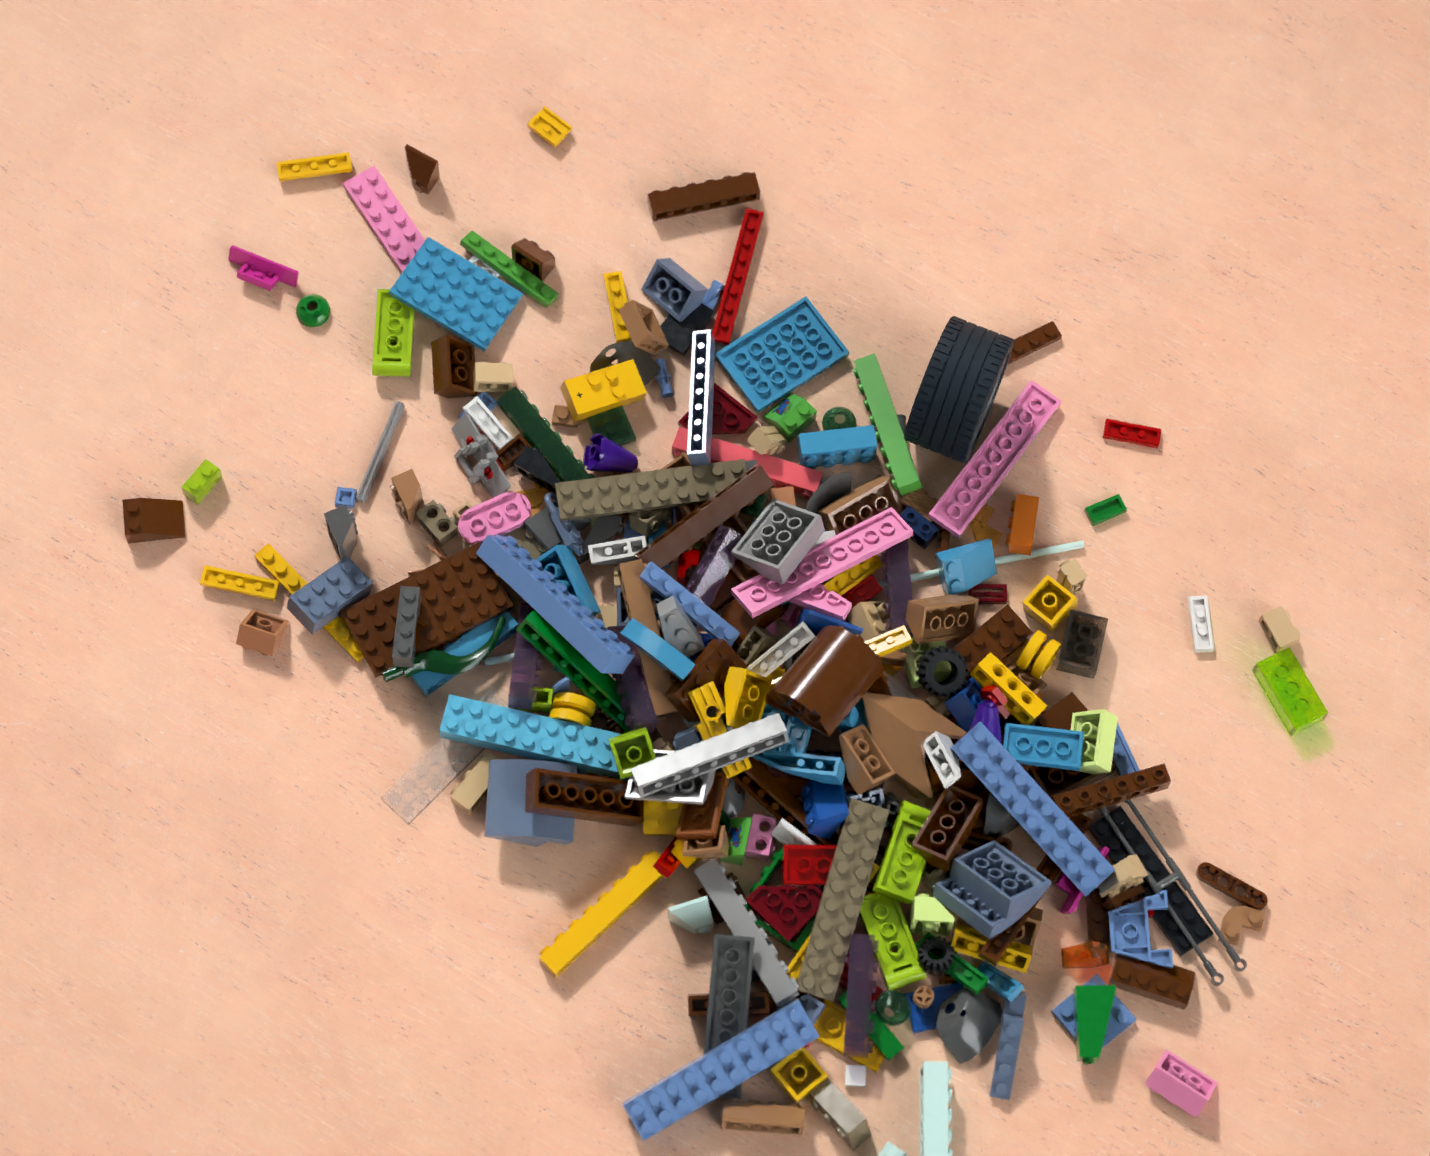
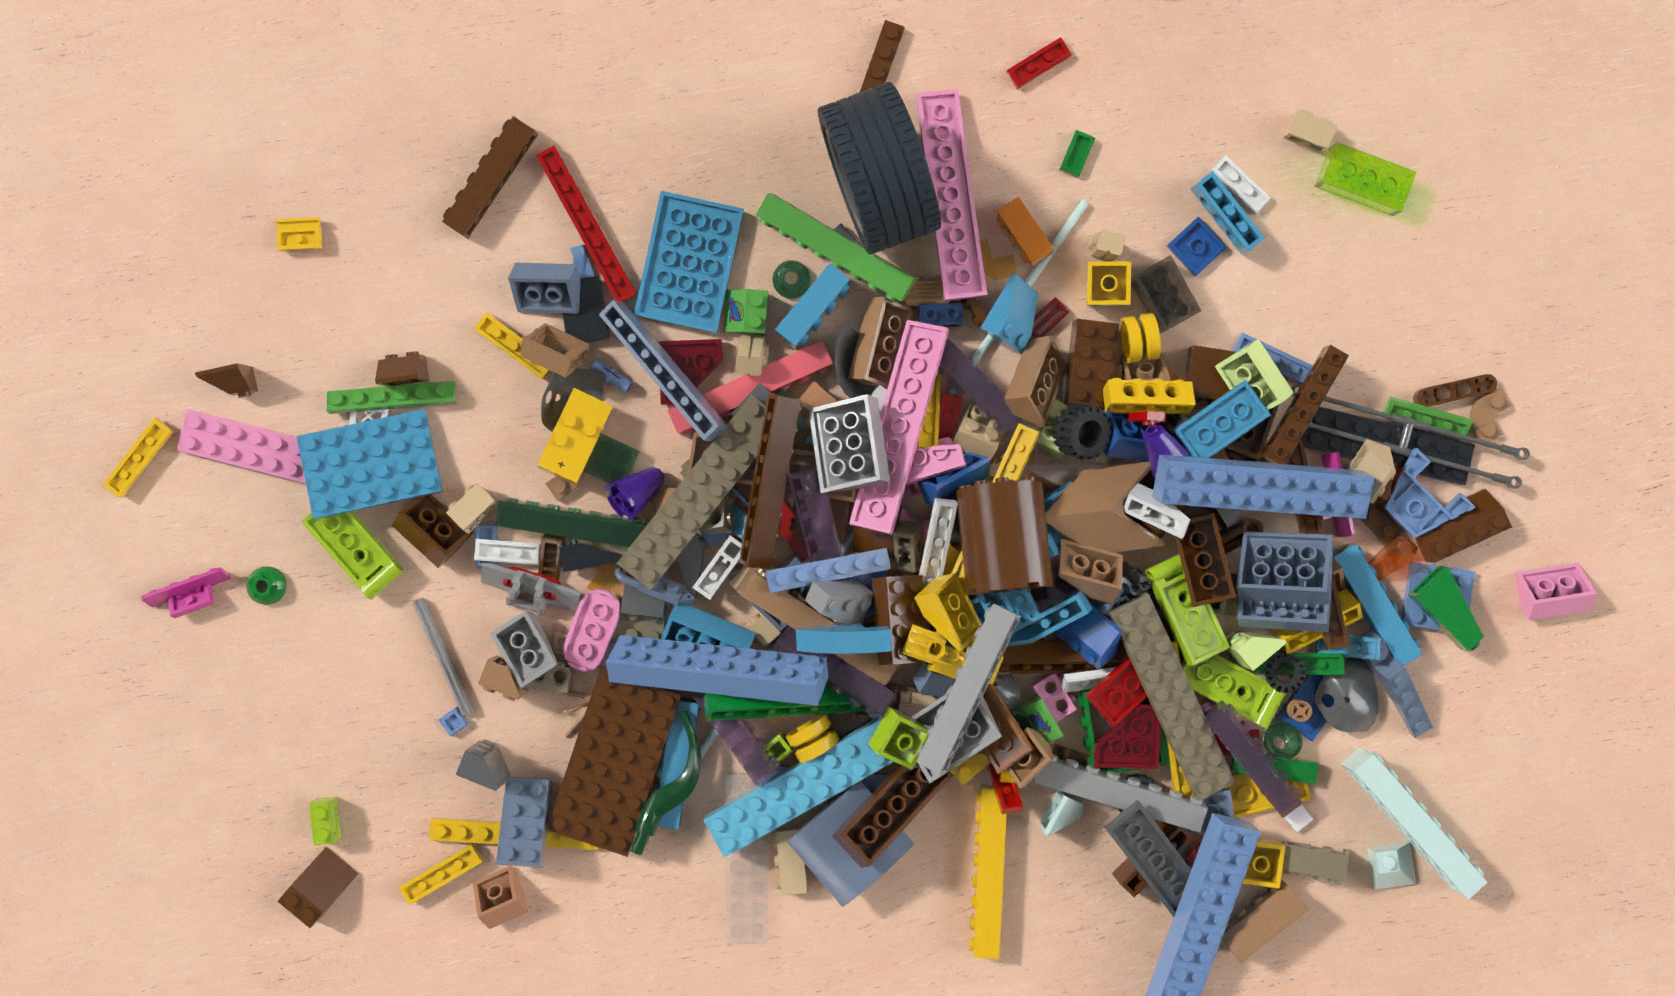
camera: 40 degrees left, 20 degrees up
(405, 630) = (621, 810): dark grey arch -> none
(441, 486) = (525, 647): none -> light grey slope
(562, 686) = (786, 725): medium blue piece -> none
(1043, 975) = (1375, 605): none -> dark azure brick
(1133, 636) = (1196, 246): none -> blue tile
(1173, 630) = (1227, 213): none -> dark azure brick
(1198, 885) = (1429, 415): none -> bright green tile

